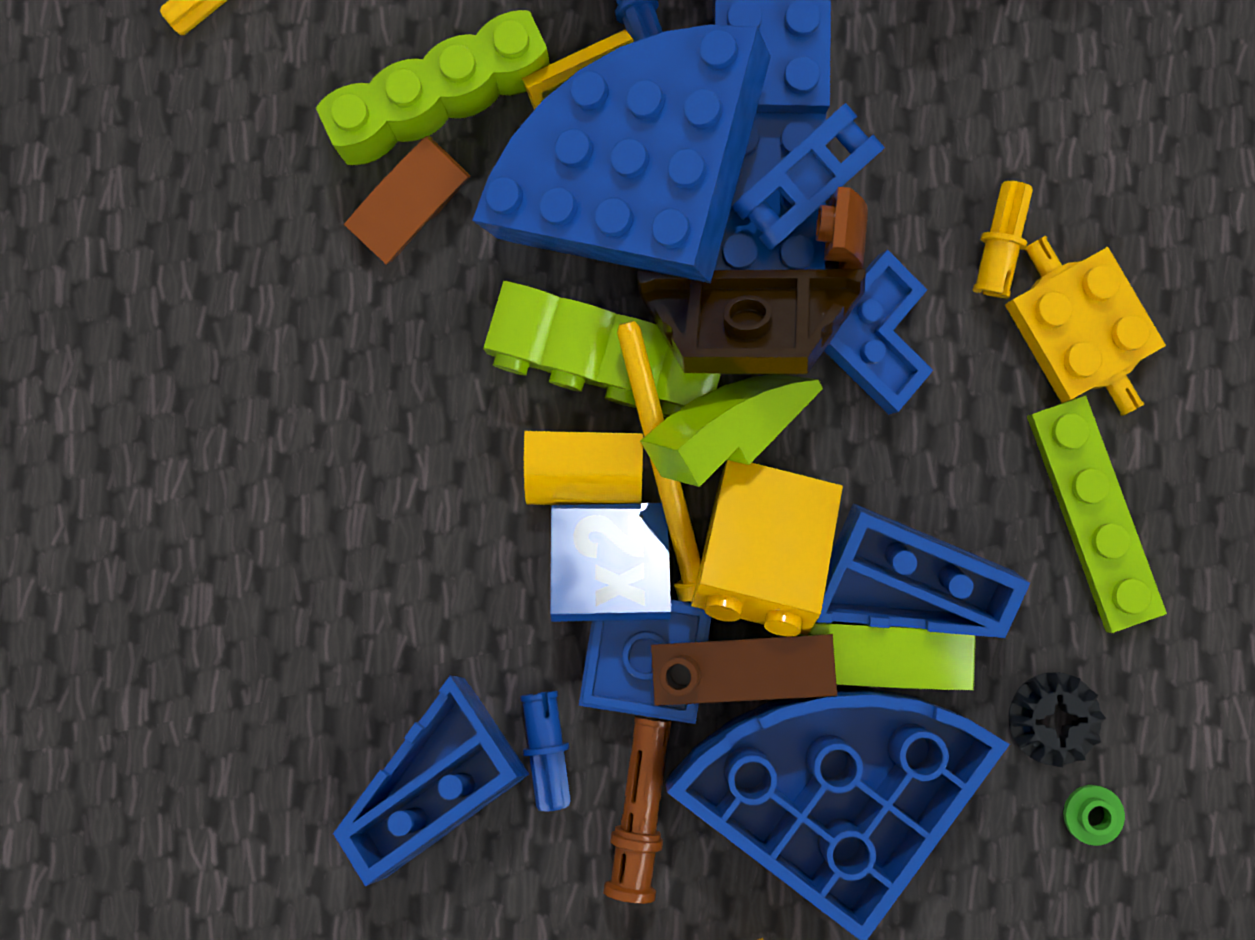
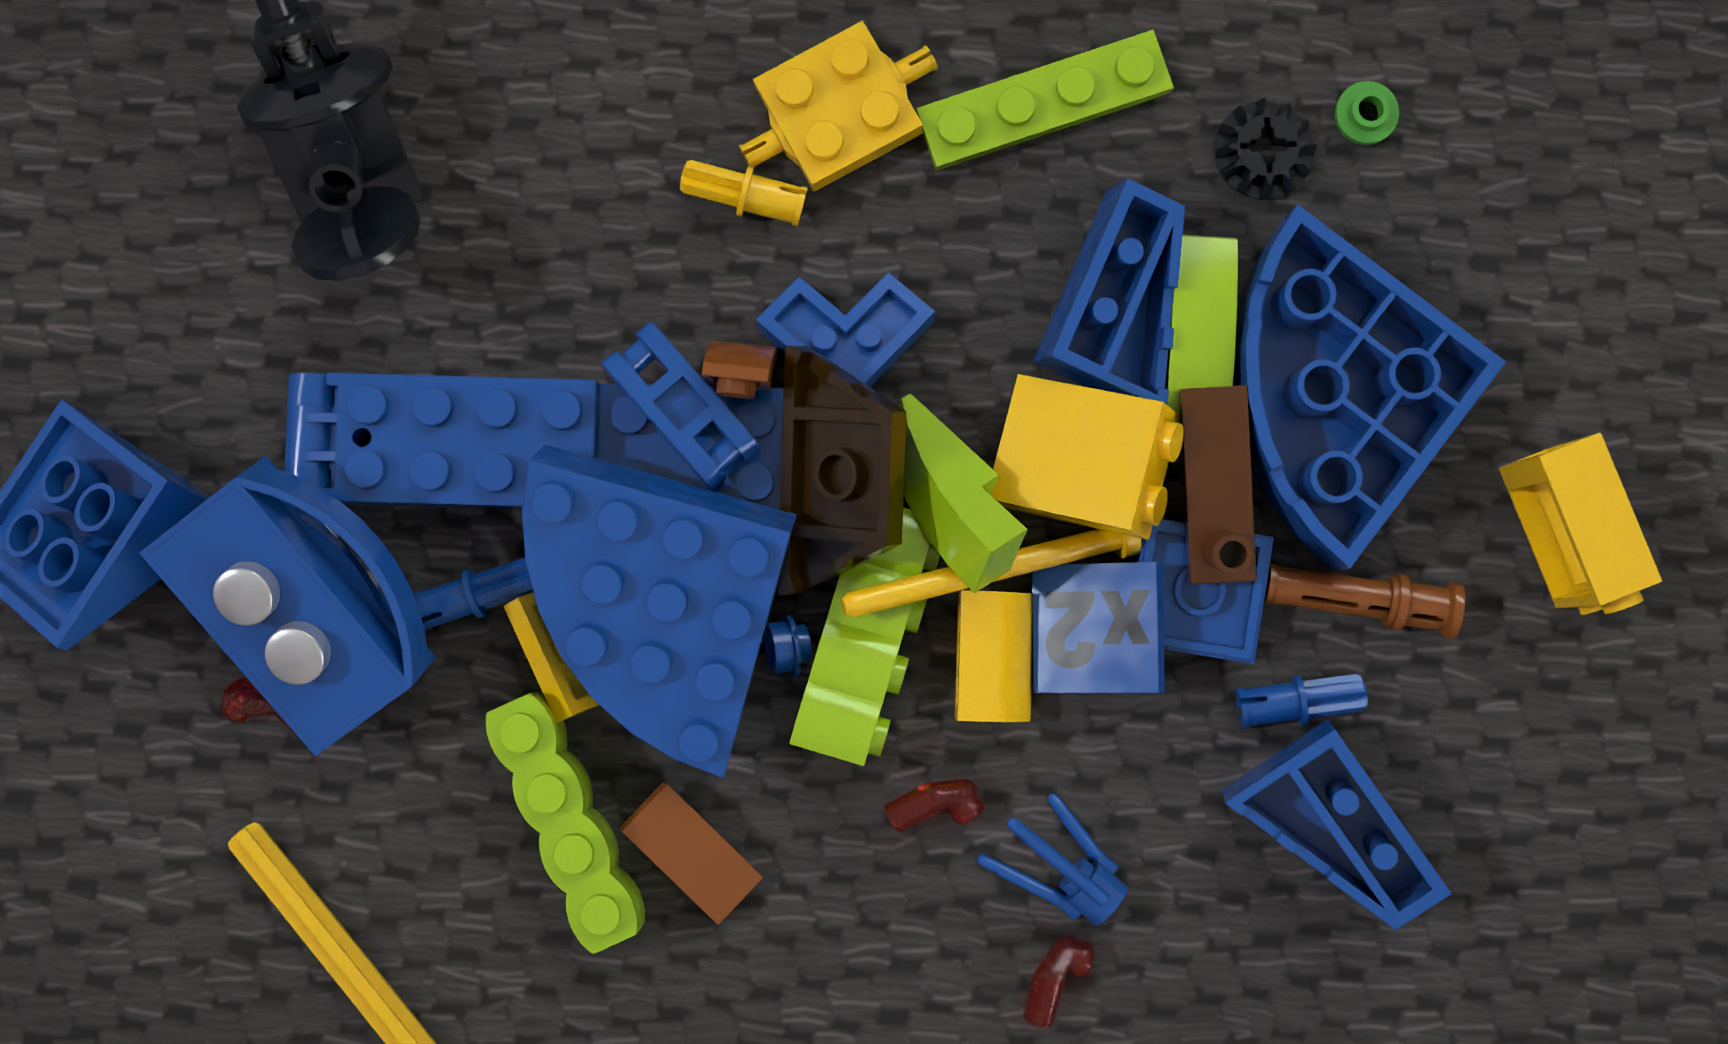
camera: 90 degrees left, 0 degrees up
(298, 521) = (1050, 976): none -> clear red arm
(376, 552) = (1088, 886): none -> blue plant
(456, 414) = (932, 798): none -> clear red arm
(592, 283) = (787, 646): none -> blue plate

